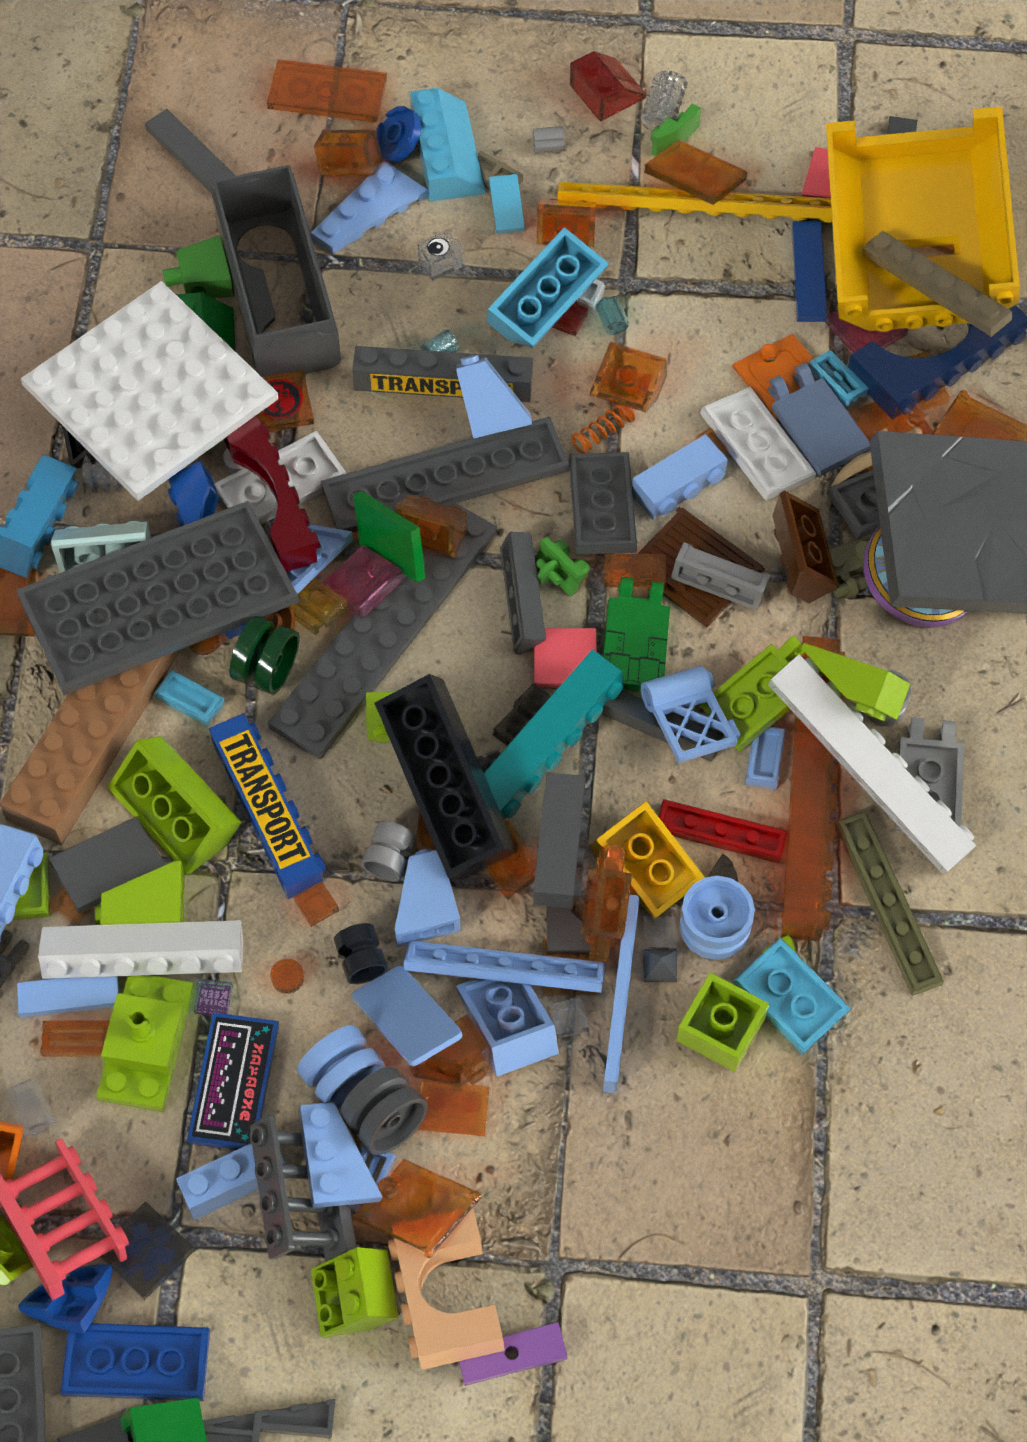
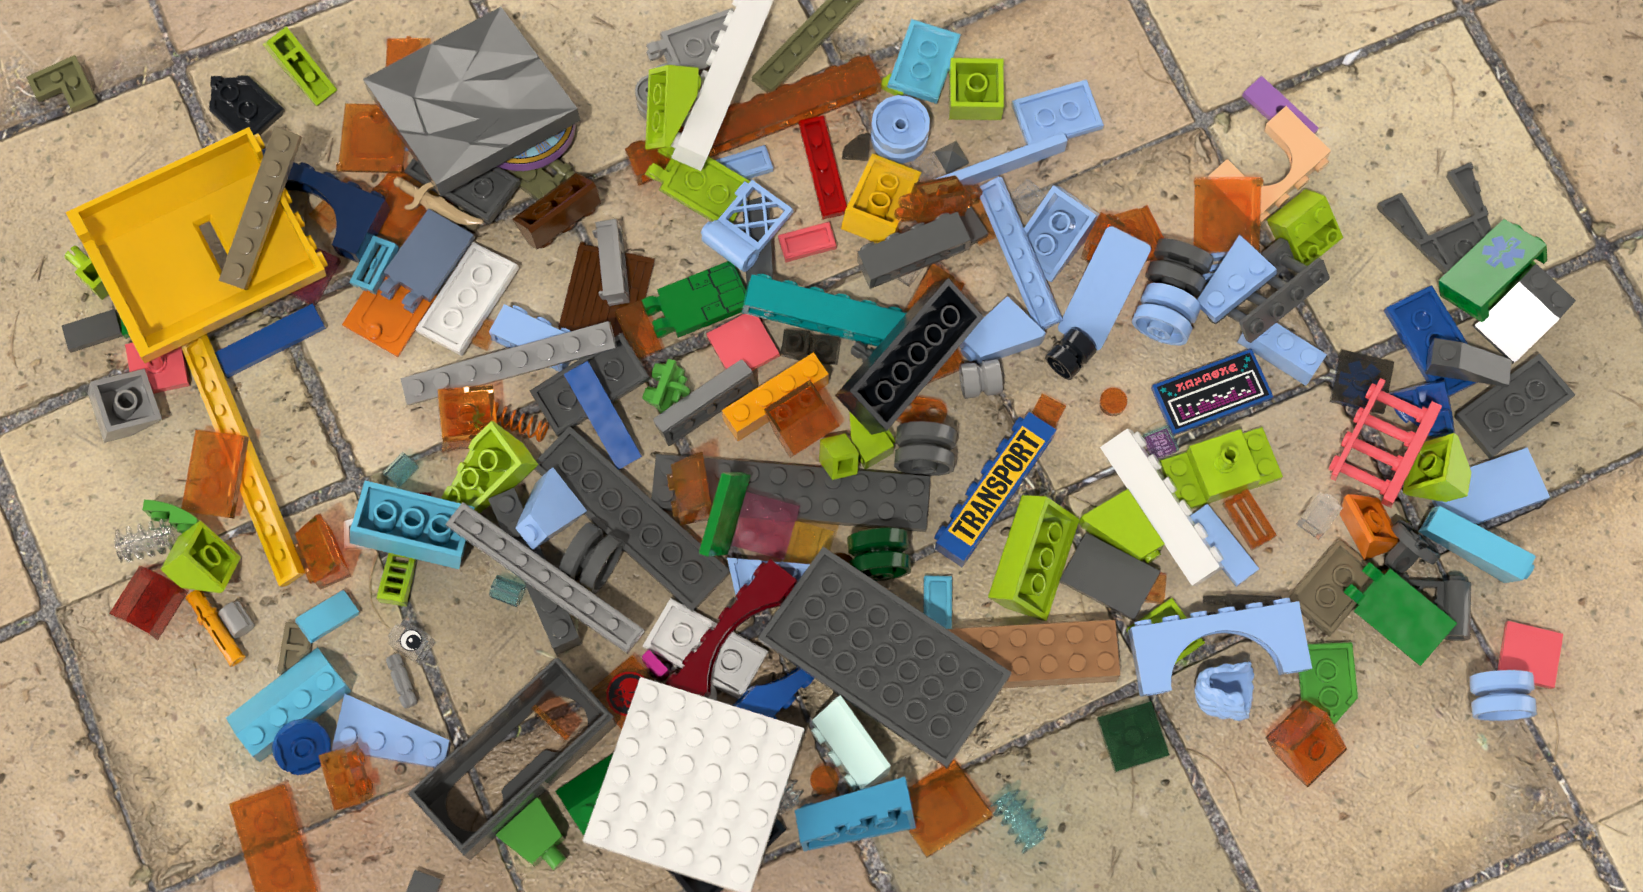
camera: 120 degrees left, 10 degrees up
(82, 1366) = (1467, 363): none -> dark grey slope
(91, 515) = (824, 780): none -> clear orange tile
(289, 313) = (549, 723): none -> clear orange piece
(289, 429) = (655, 665): none -> dark pink tile
(343, 751) = (925, 448): none -> dark grey wheel
(388, 672) = (838, 456): none -> lime brick
(393, 781) = (919, 411): none -> clear orange plate
(406, 236) = (401, 680): none -> light grey axle
(421, 415) = (591, 557): none -> dark grey wheel
(422, 362) = (545, 578): none -> light grey tile
(448, 653) = (800, 419): none -> clear orange slope
(488, 653) = (748, 414): none -> light orange brick
(495, 260) = (393, 598): none -> lime slope
(561, 493) = (602, 415): none -> blue tile
(562, 375) = (490, 468): none -> lime wedge
(567, 120) = (209, 618): none -> light orange pin
(614, 126) = (200, 560): none -> lime slope
(643, 773) = (807, 242): none -> coral tile
(649, 1105) = (1057, 111): none -> light blue tile
(661, 438) = (510, 362): none -> light grey plate
(803, 126) = (123, 404): none -> light grey slope

